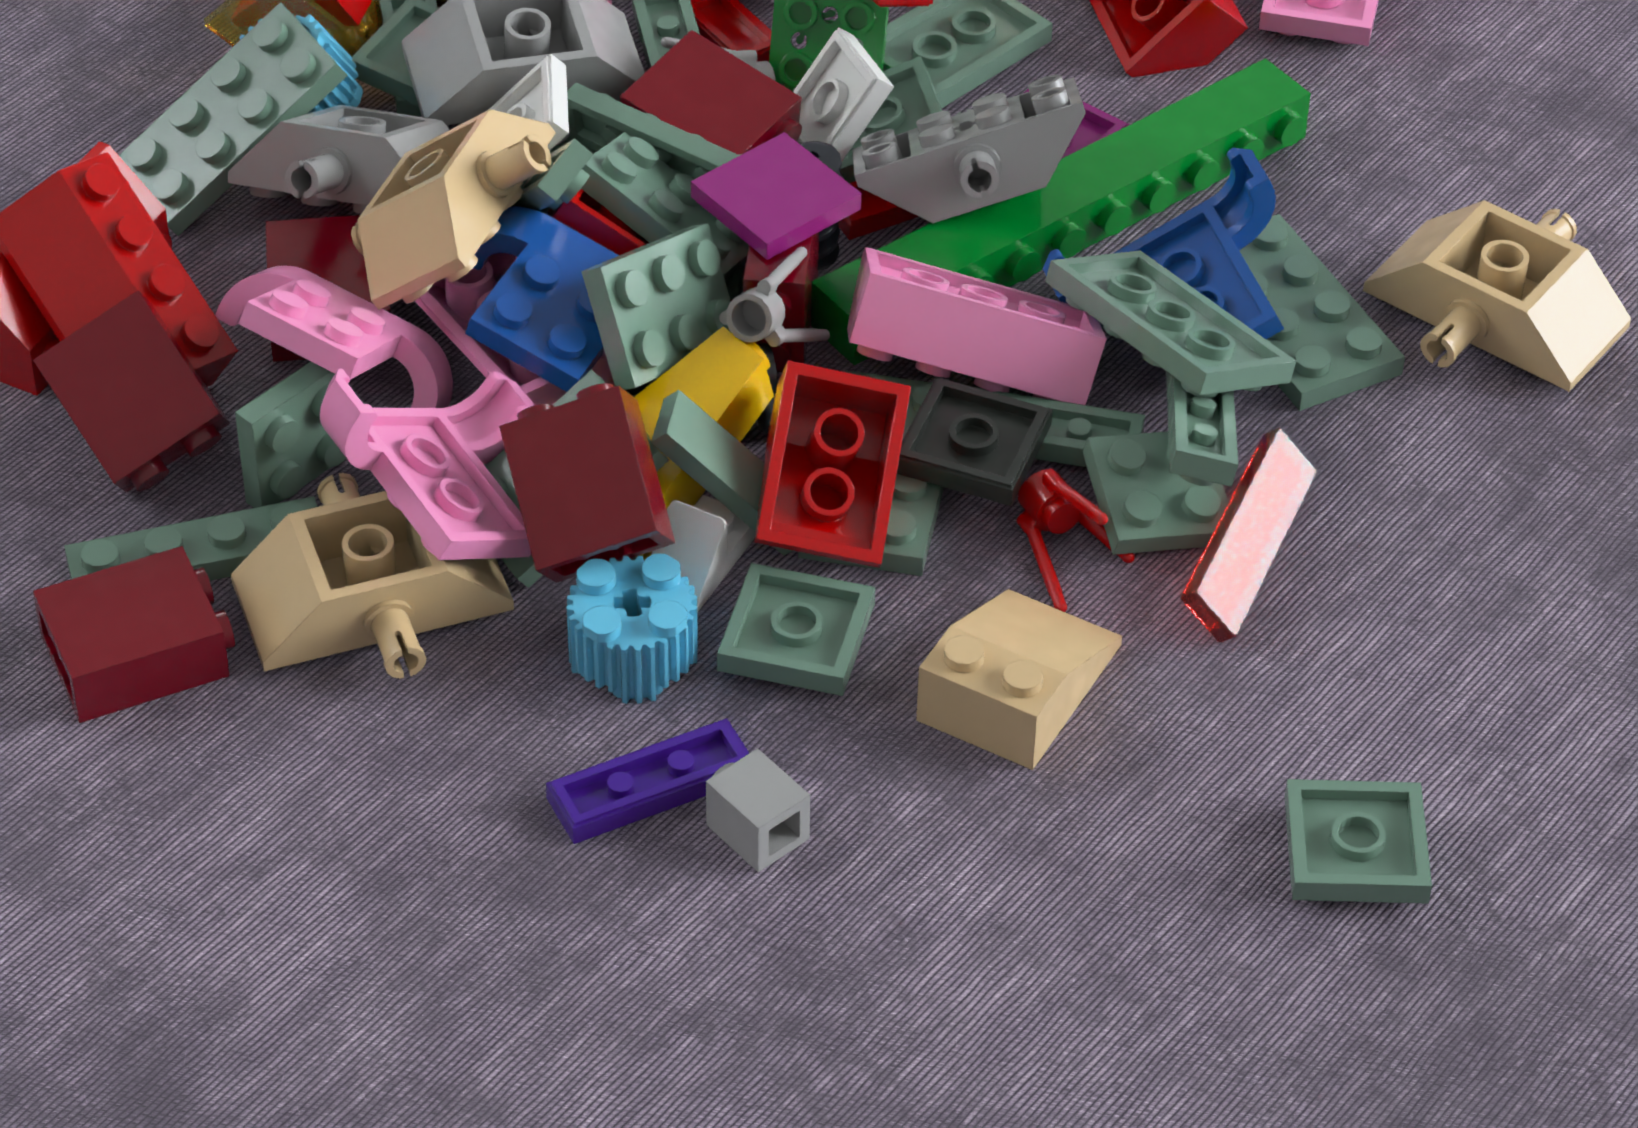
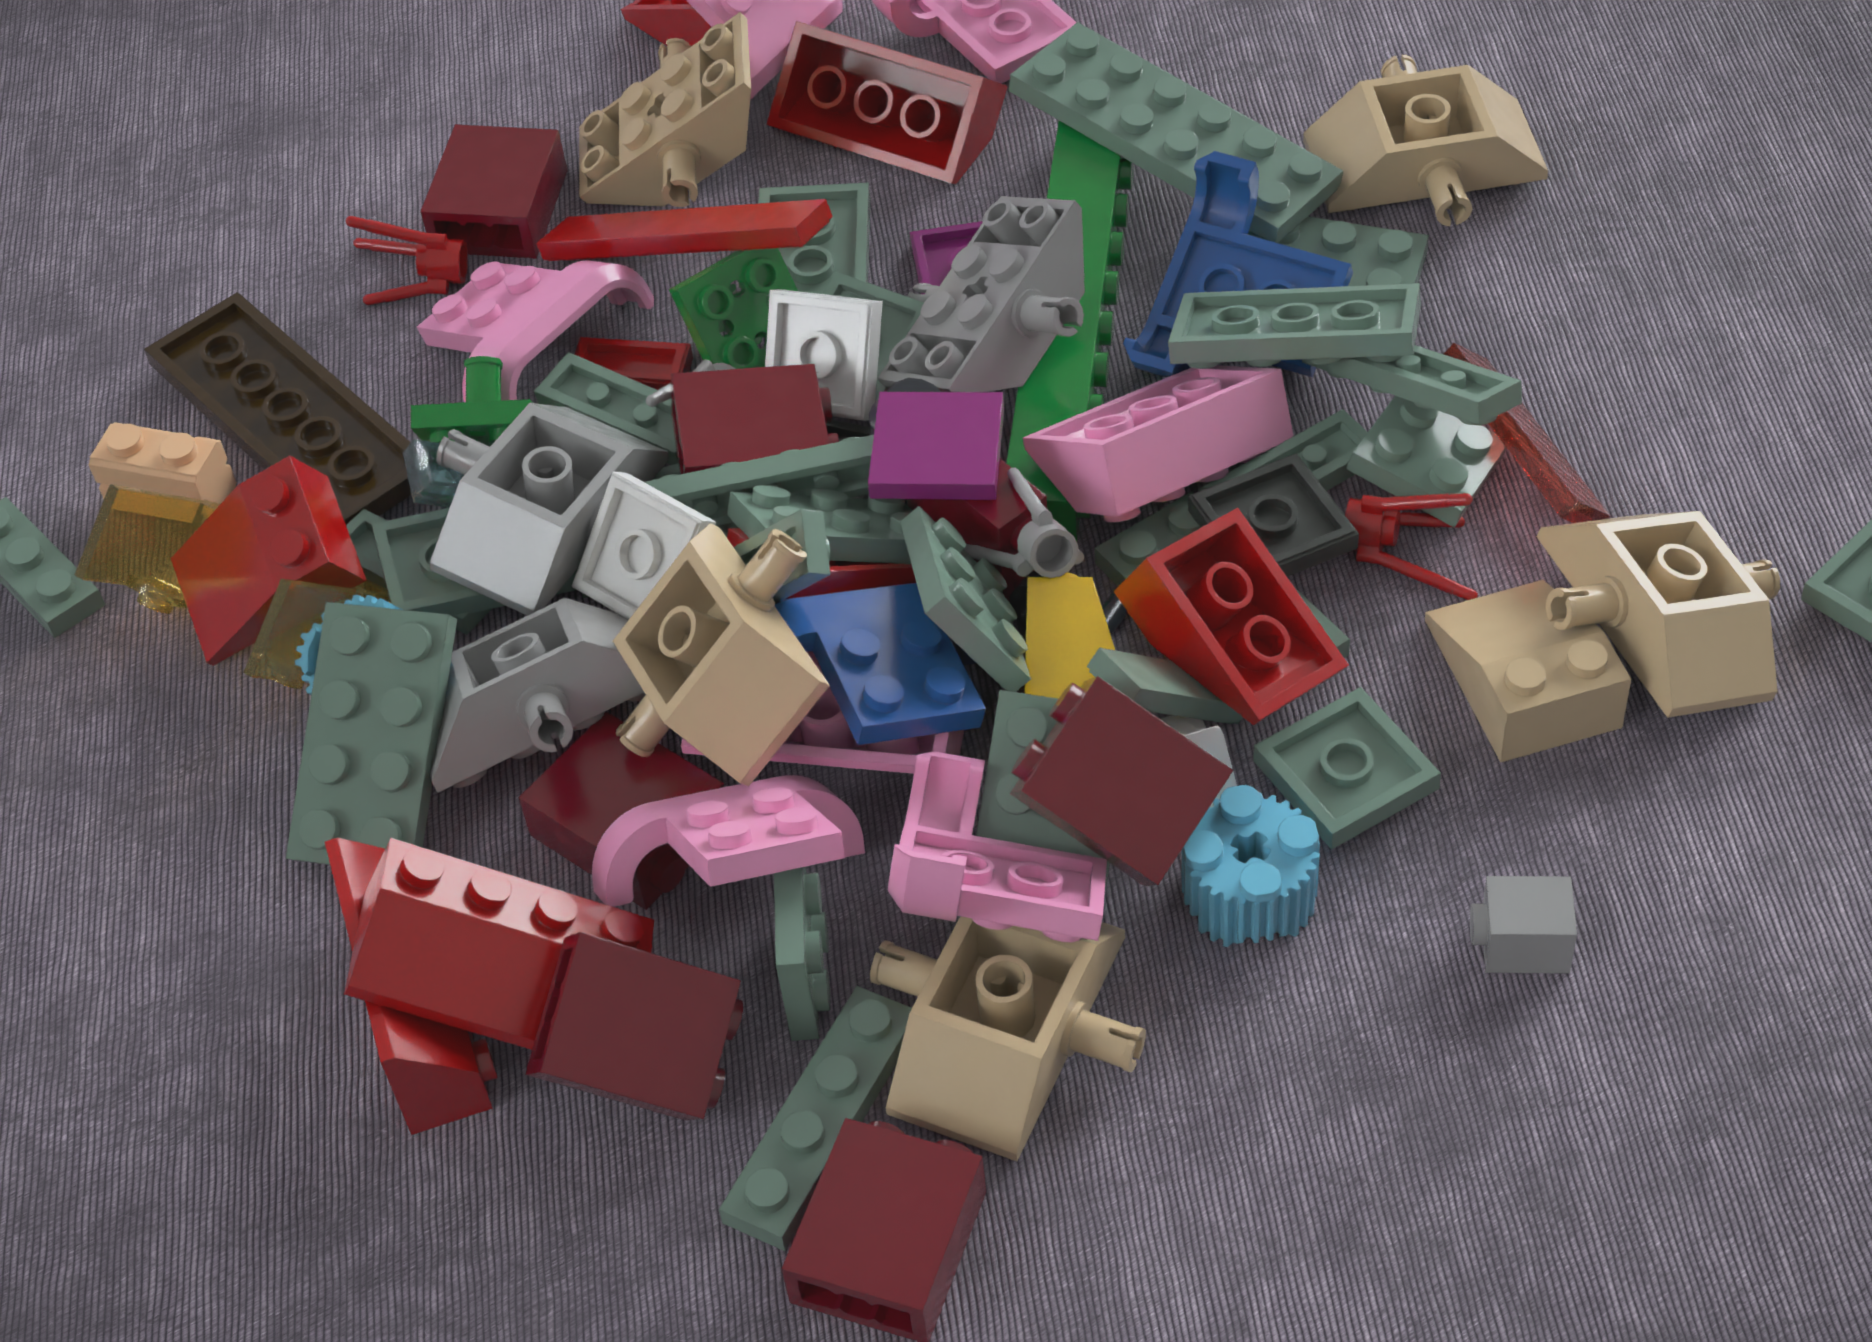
camera: 40 degrees left, 5 degrees up
(643, 781) = (1409, 977): dark purple tile -> none
(1154, 710) = (1671, 605): none -> tan slope
(1309, 139) = (1169, 125): none -> sand green plate

